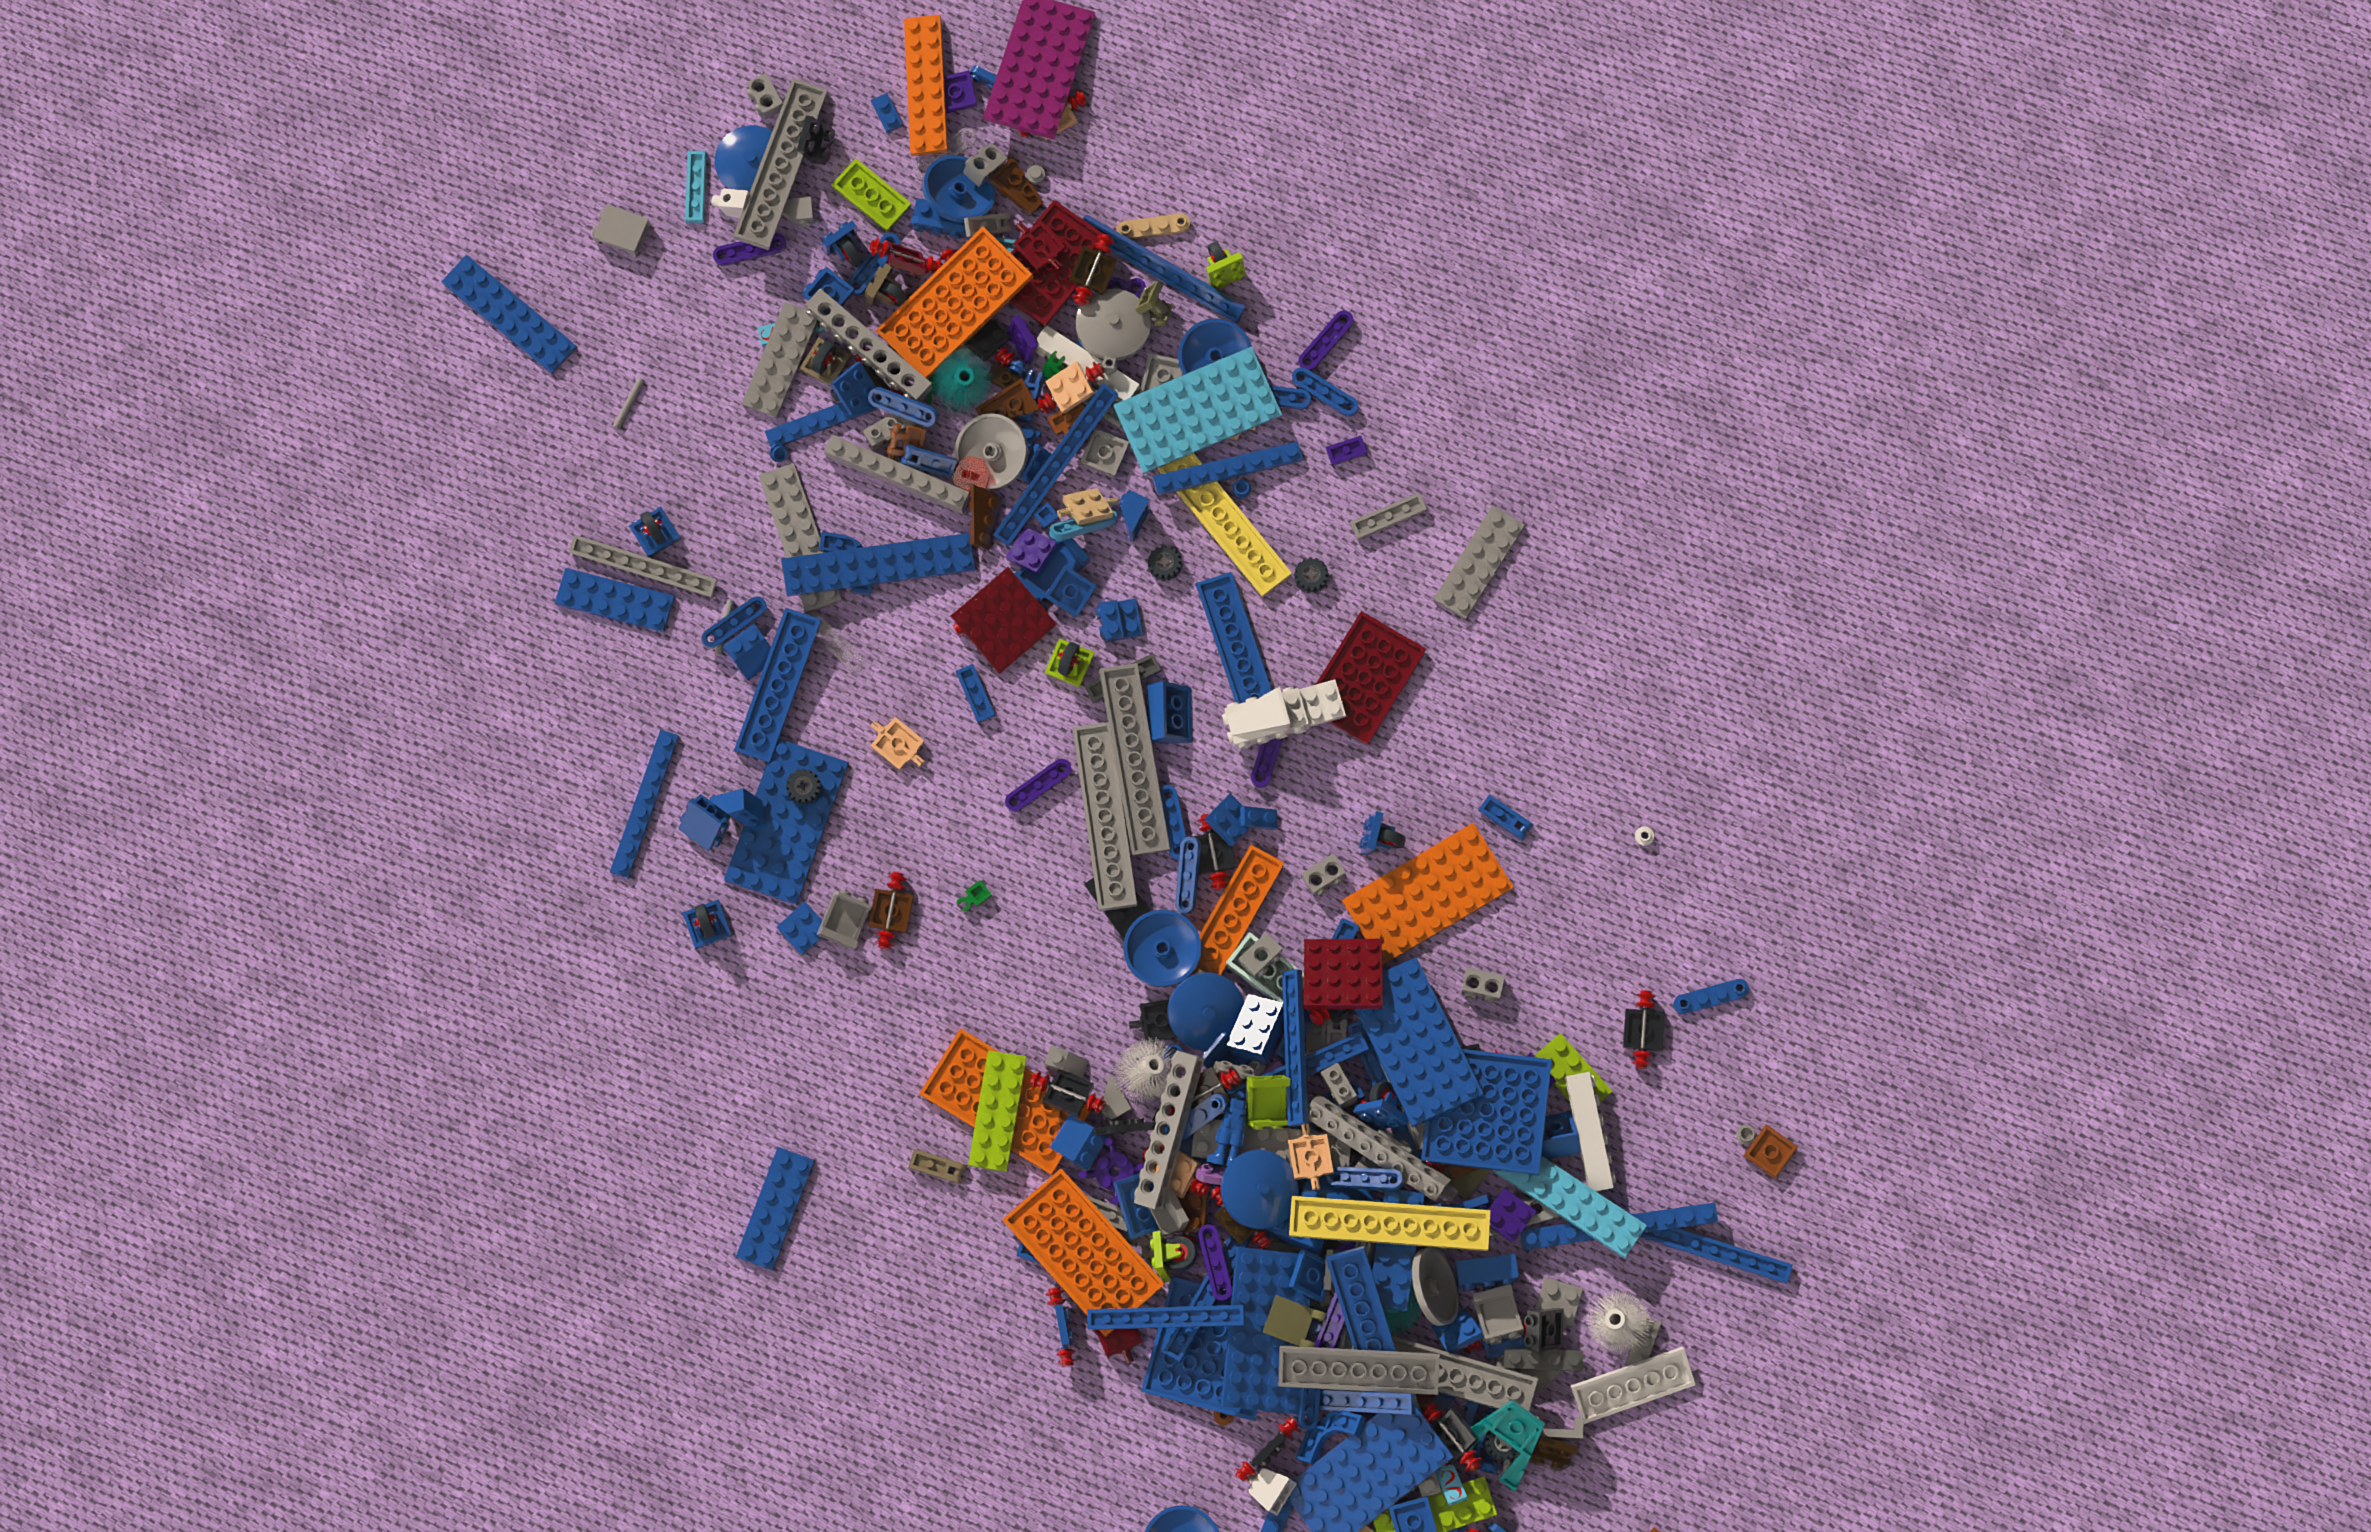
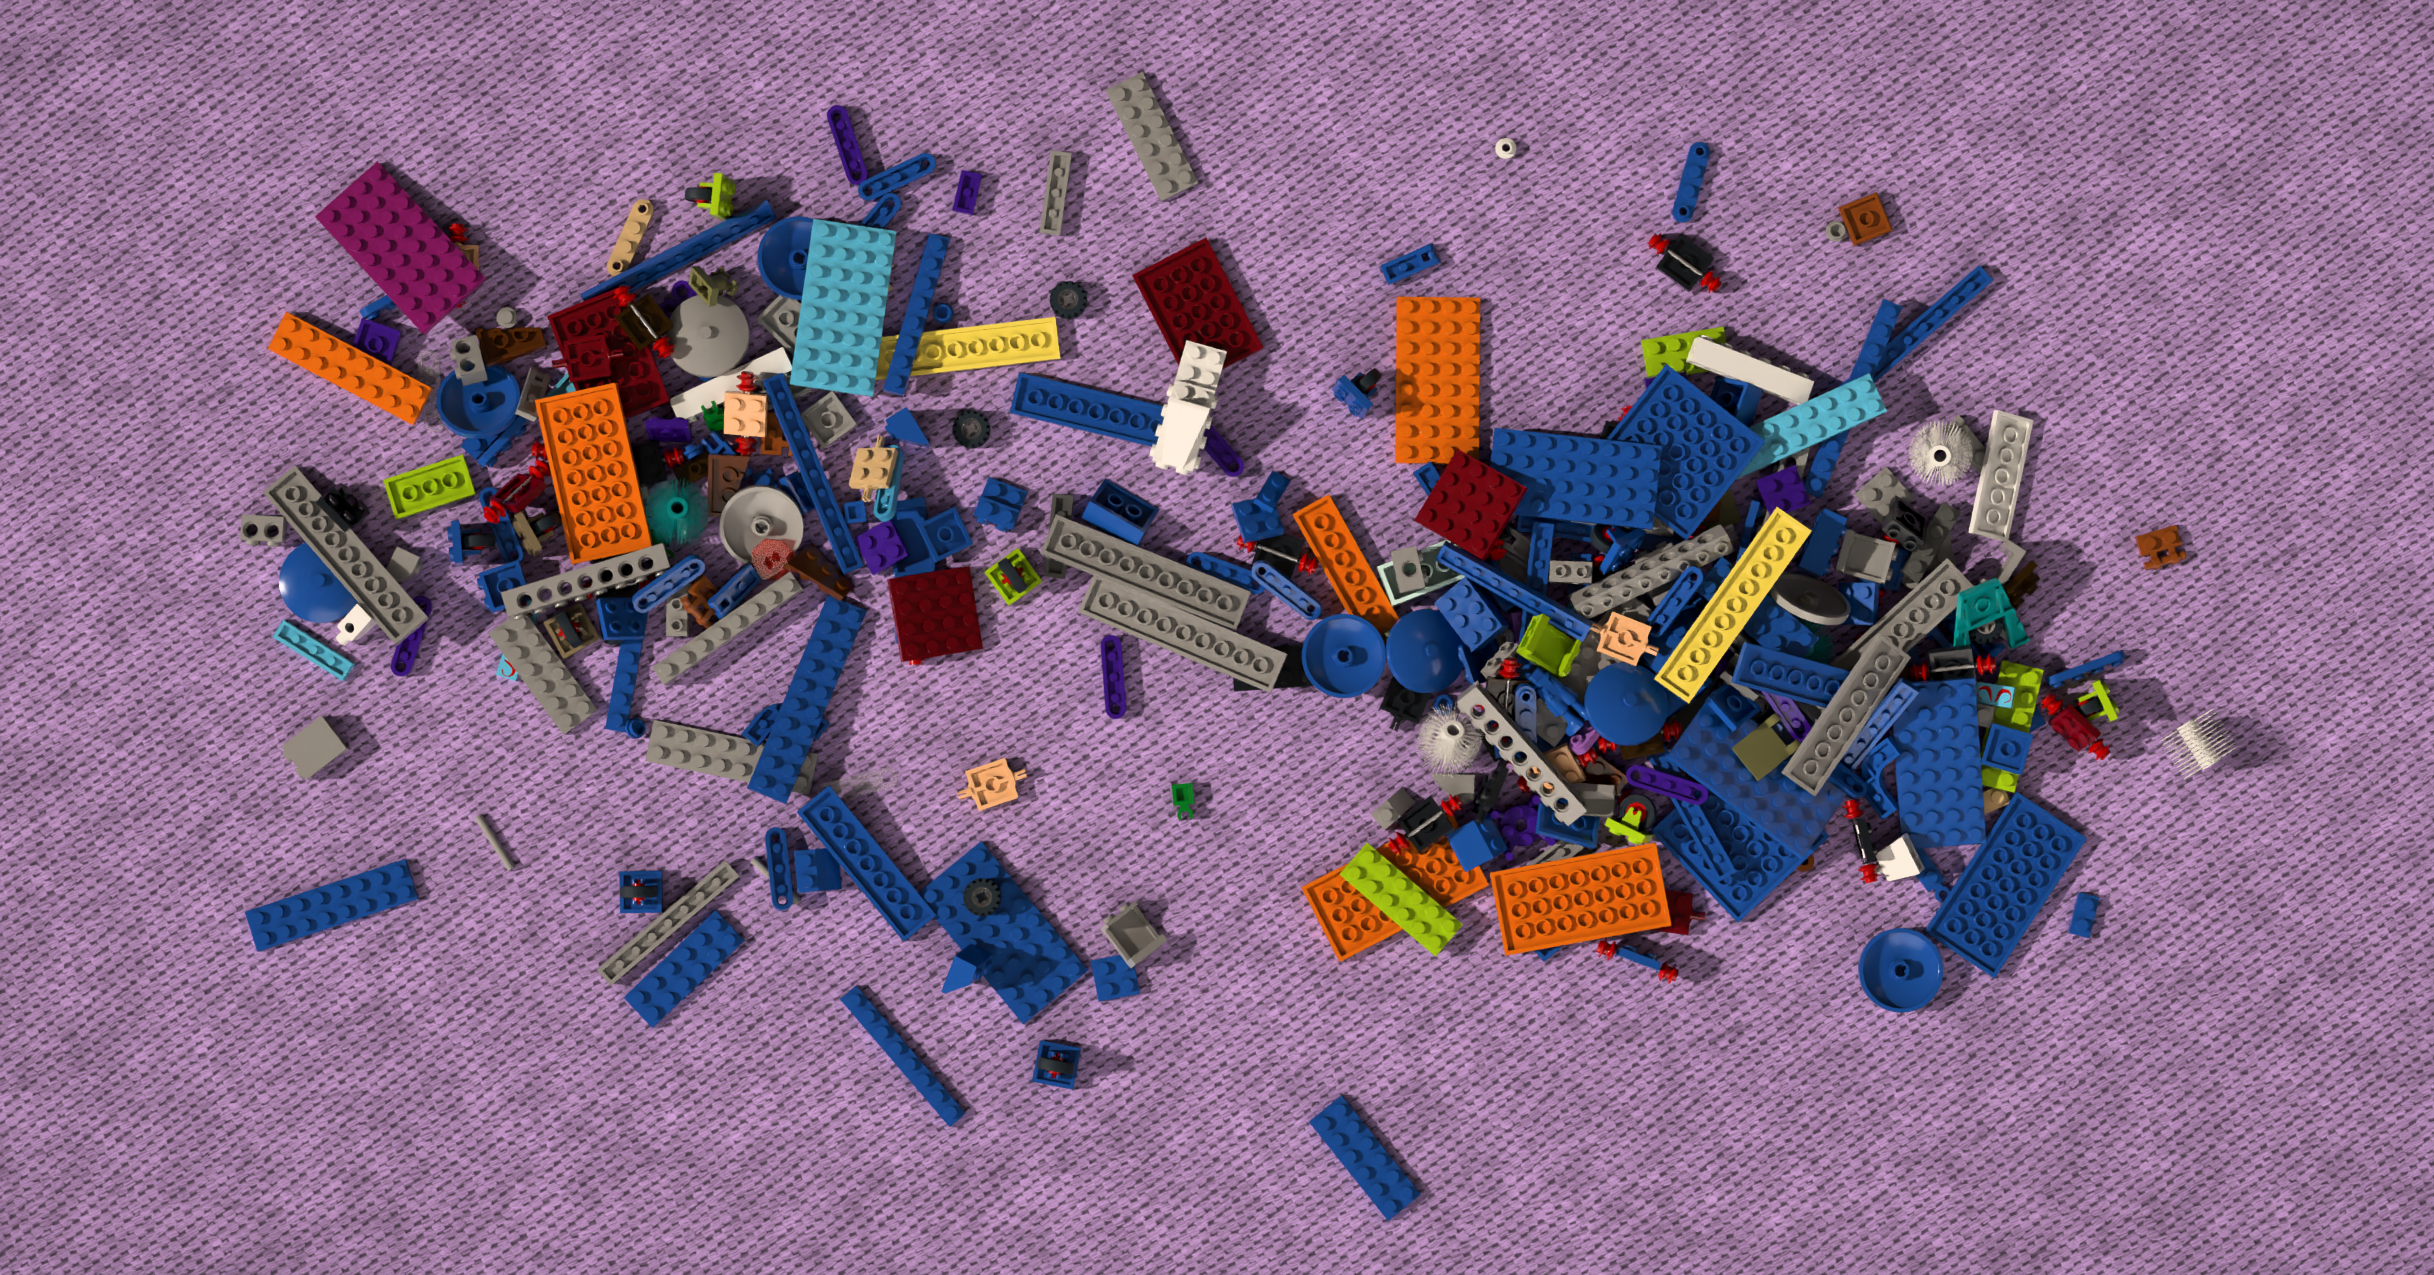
camera: 65 degrees left, 10 degrees up
(704, 822) = (959, 1011): blue brick -> none
(886, 112) = (353, 422): blue plate -> none
(891, 911) = (1149, 885): reddish brown plate -> none
(936, 1166) = (1416, 986): dark tan plate -> none
(975, 693) = (988, 682): blue plate -> none
(1109, 369) = (752, 367): light grey hose -> none
(1166, 1317) = (1692, 860): blue plate -> none
(1320, 871) = (1357, 465): light grey brick -> none
(1484, 979) = (1550, 379): light grey brick -> none

